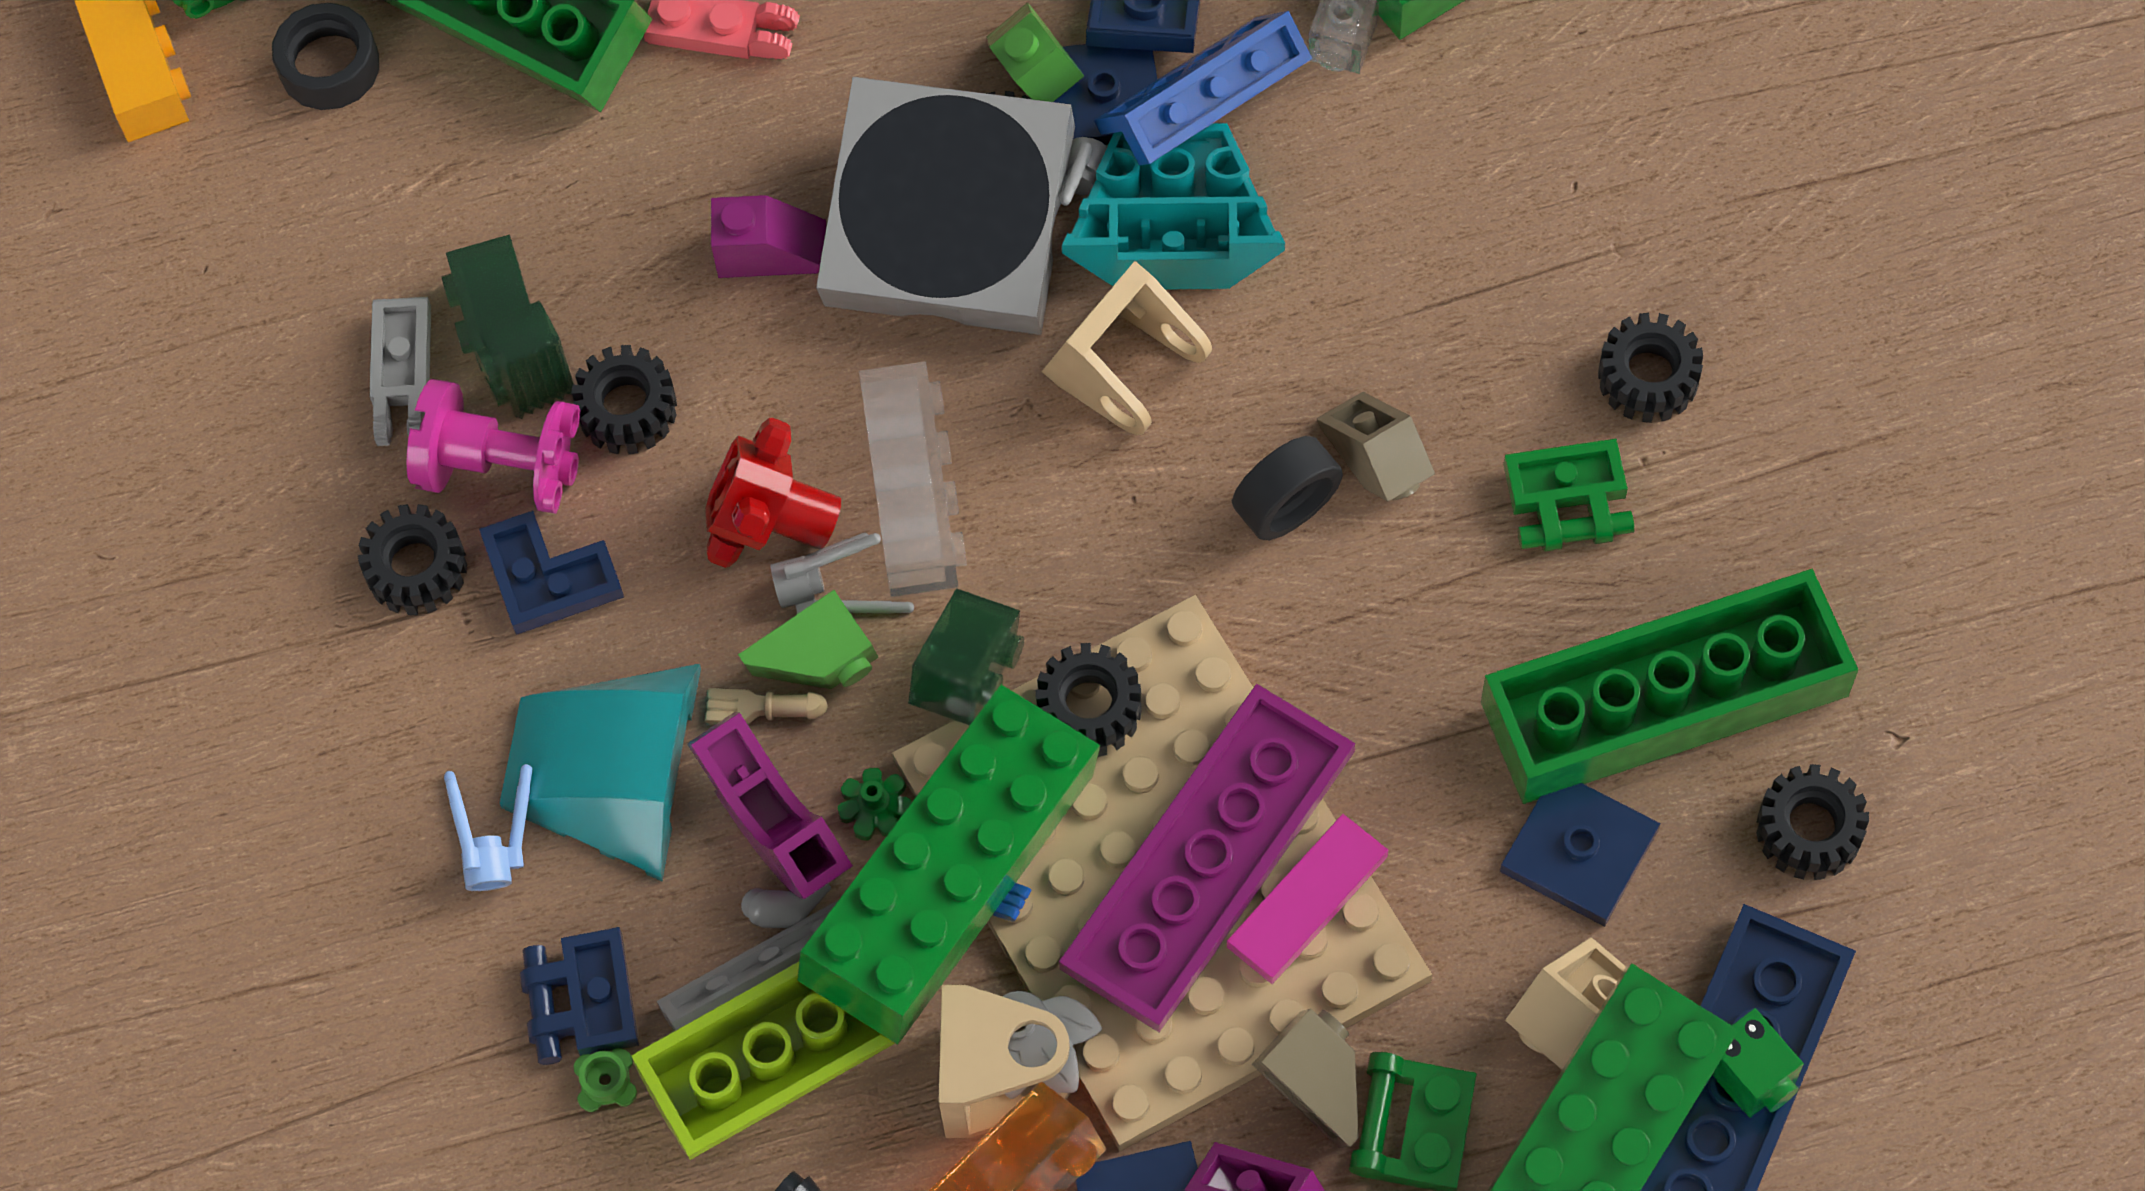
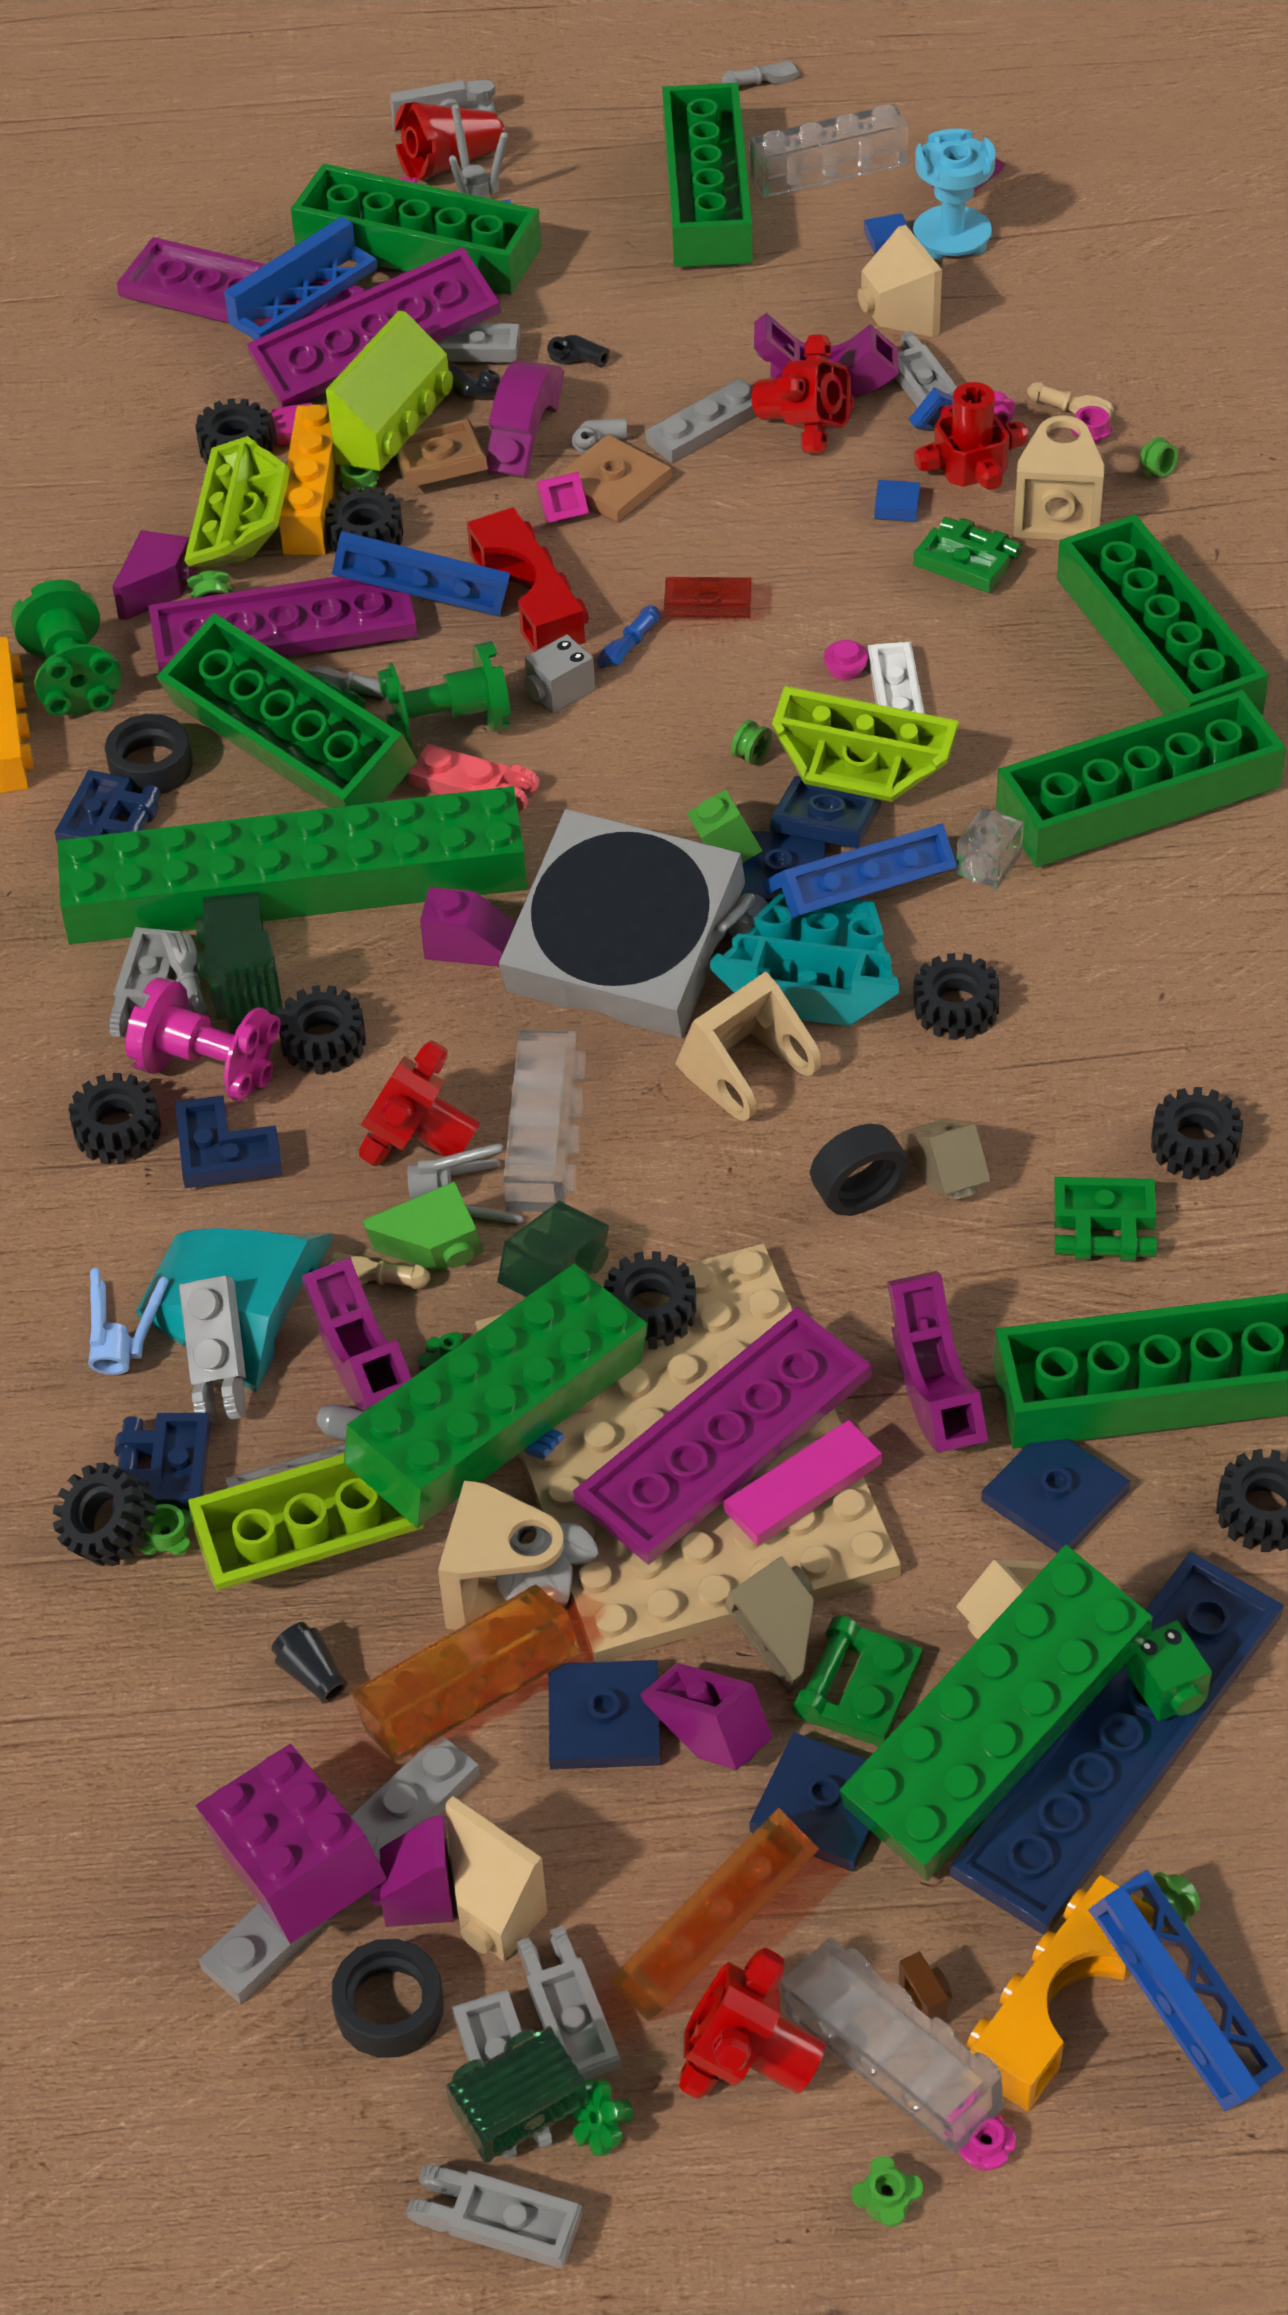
camera: 10 degrees right, 15 degrees down
(281, 145) = (101, 801): none -> dark blue plate
(440, 335) = (182, 958): none -> light grey piece
(505, 1084) = (124, 1526): none -> black tyre
(537, 182) = (294, 860): none -> green brick
(606, 844) = (214, 1344): none -> light grey hinge
(1350, 203) = (956, 1016): none -> black tyre
(1426, 744) = (937, 1387): none -> magenta arch

